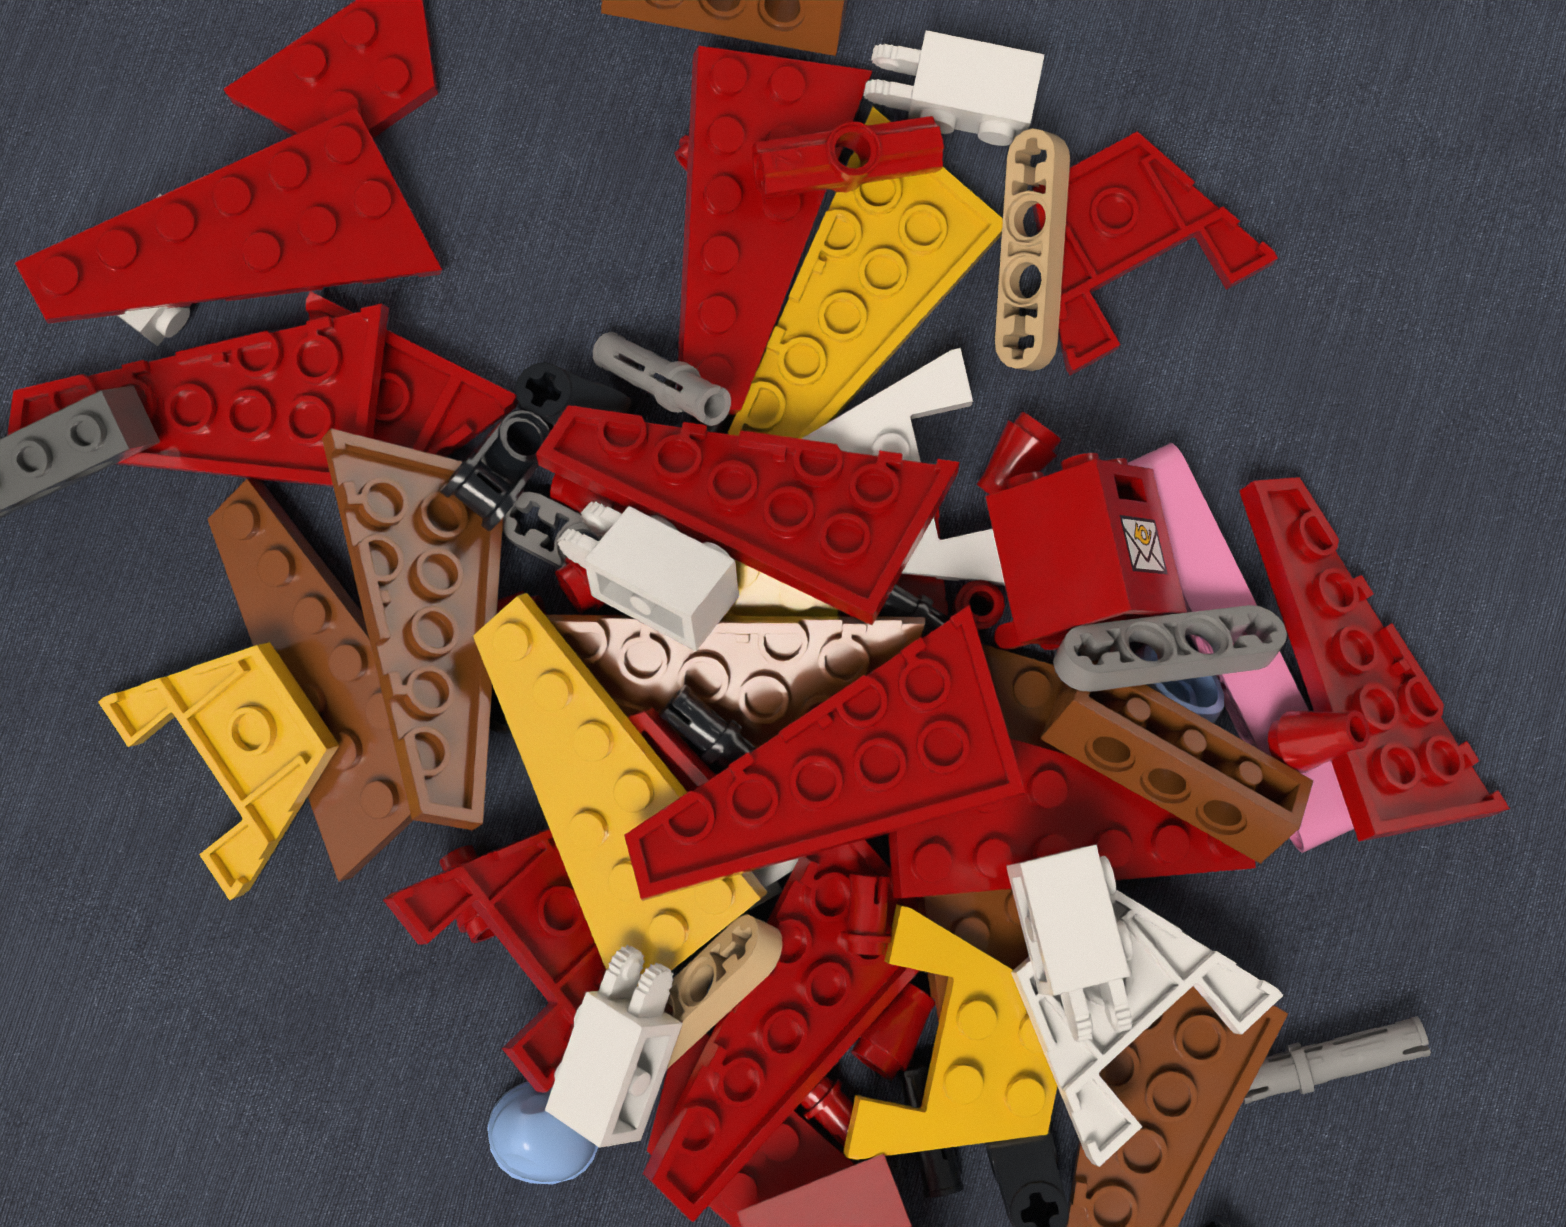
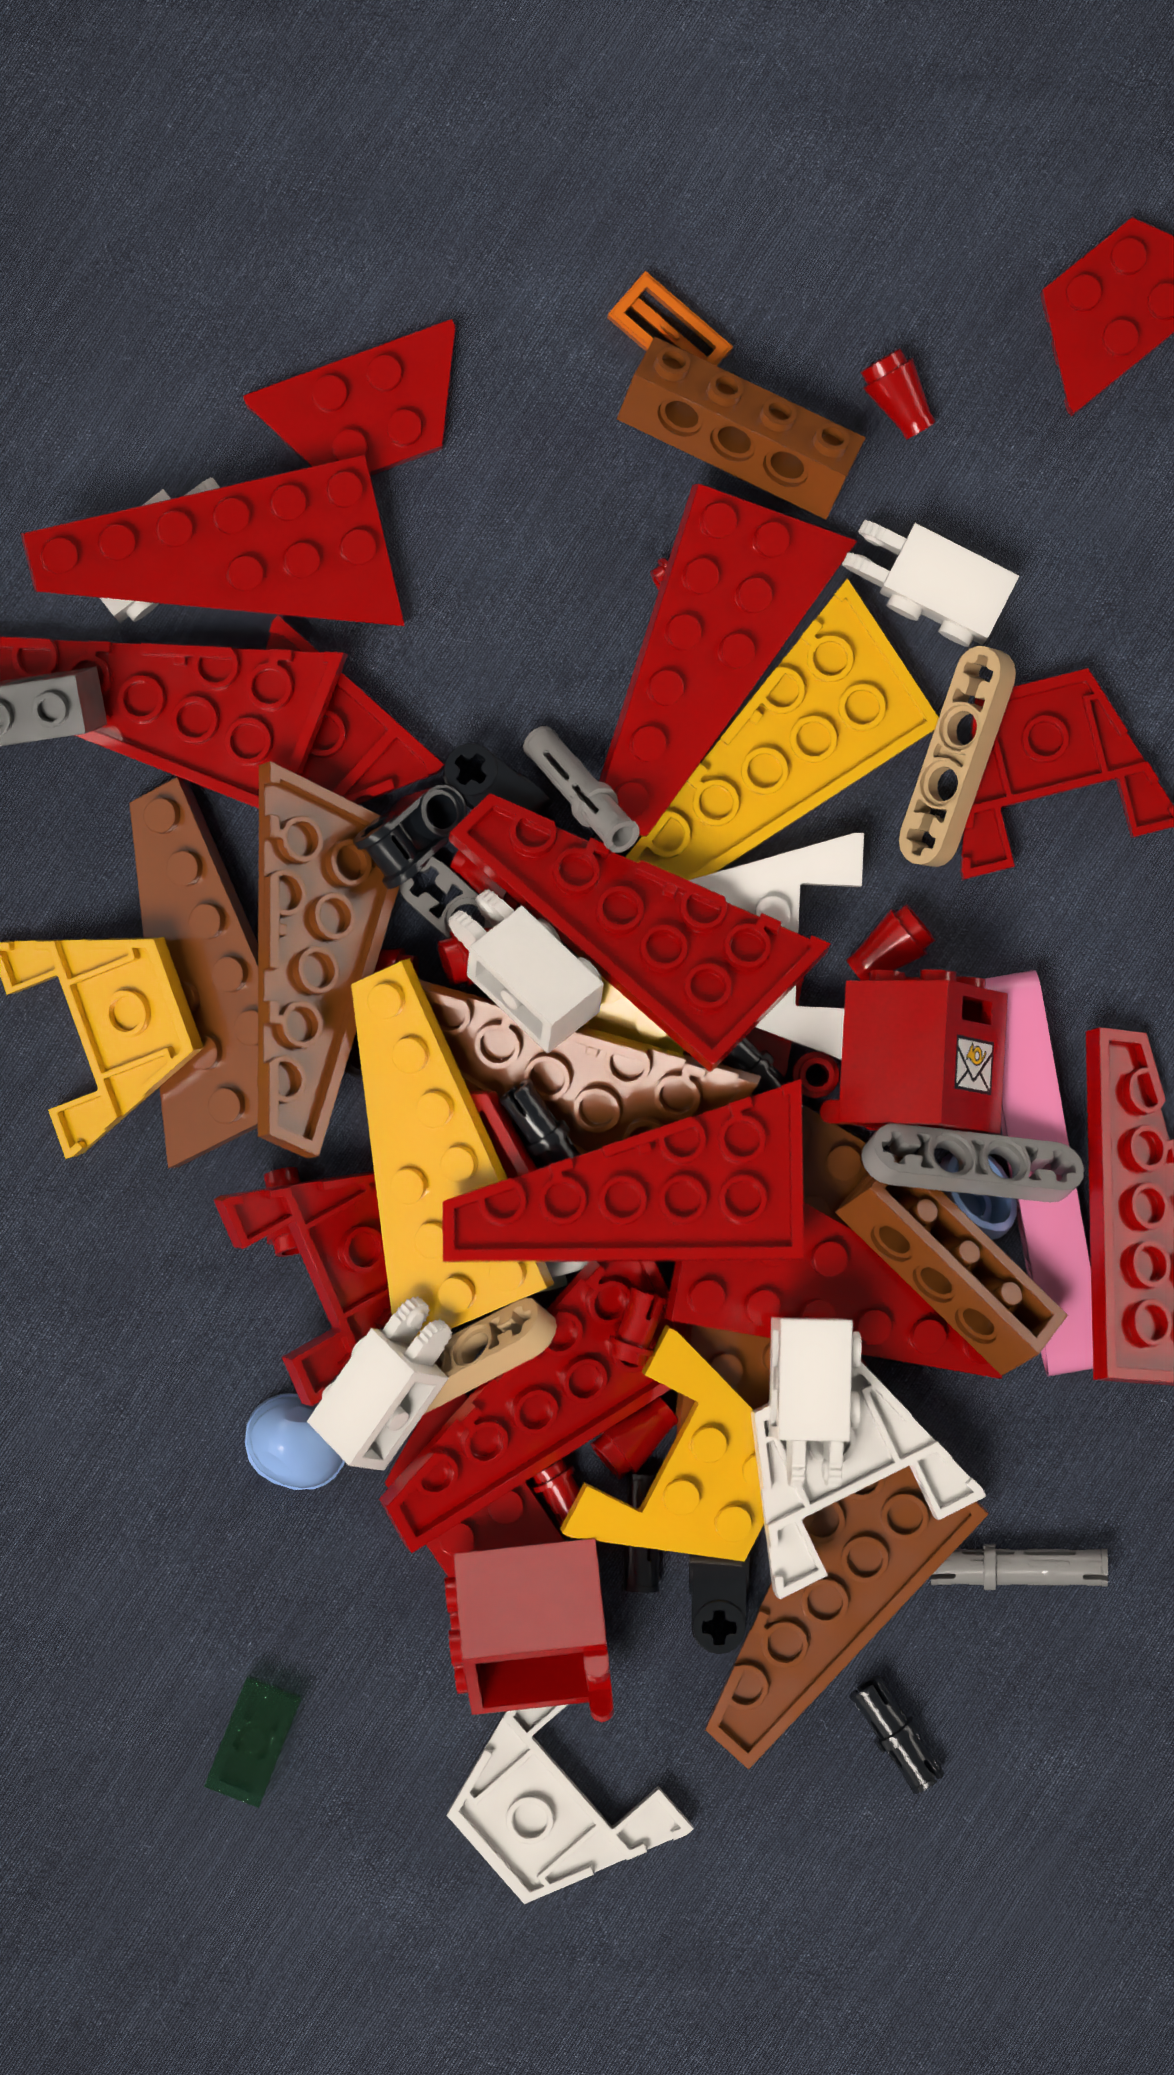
camera: 10 degrees right, 5 degrees up
(811, 164) = (843, 628): red piece -> none
(1314, 738) = (1078, 1277): red cone -> none

